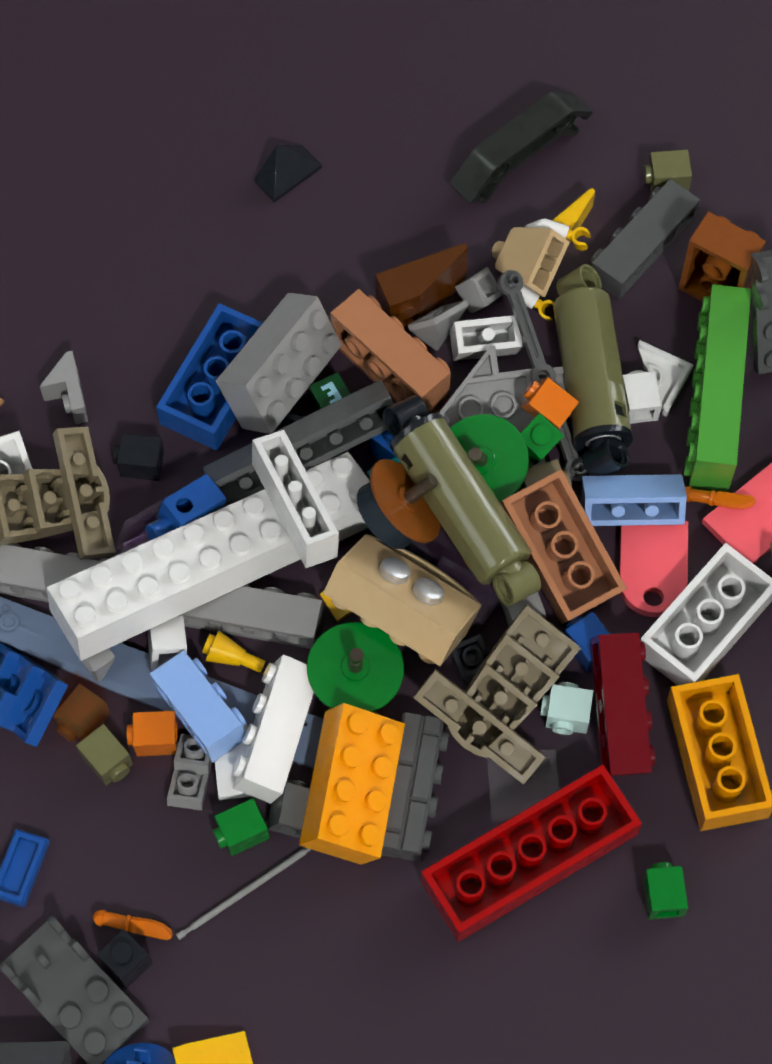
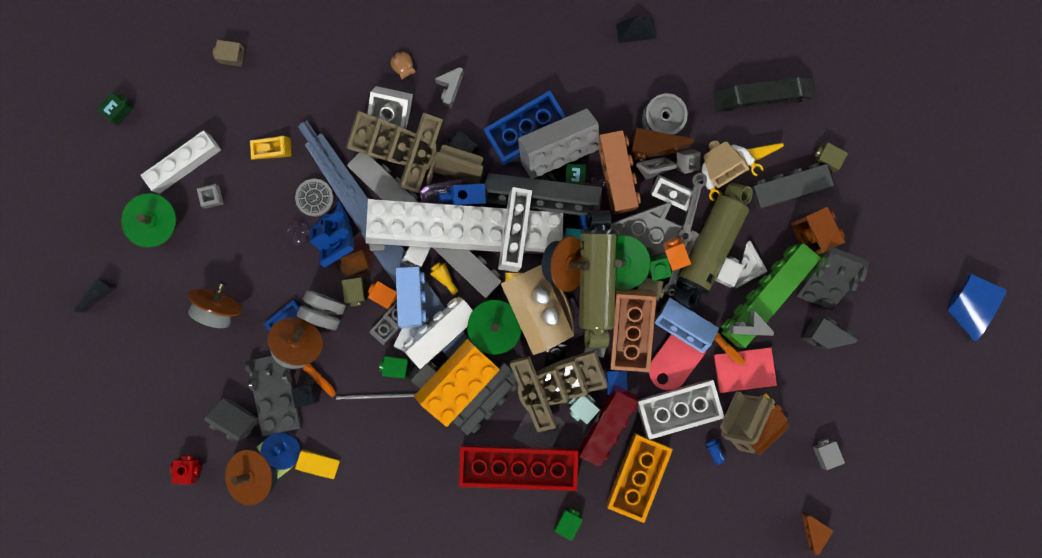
camera: 30 degrees right, 20 degrees up
(59, 883) = (294, 342): none -> dark orange piece
(71, 806) = (321, 310): none -> light grey wheel
(147, 478) = (457, 165): none -> dark tan piece
(402, 238) = (672, 107): none -> light grey wheel
(729, 425) = (756, 326): none -> light grey slope

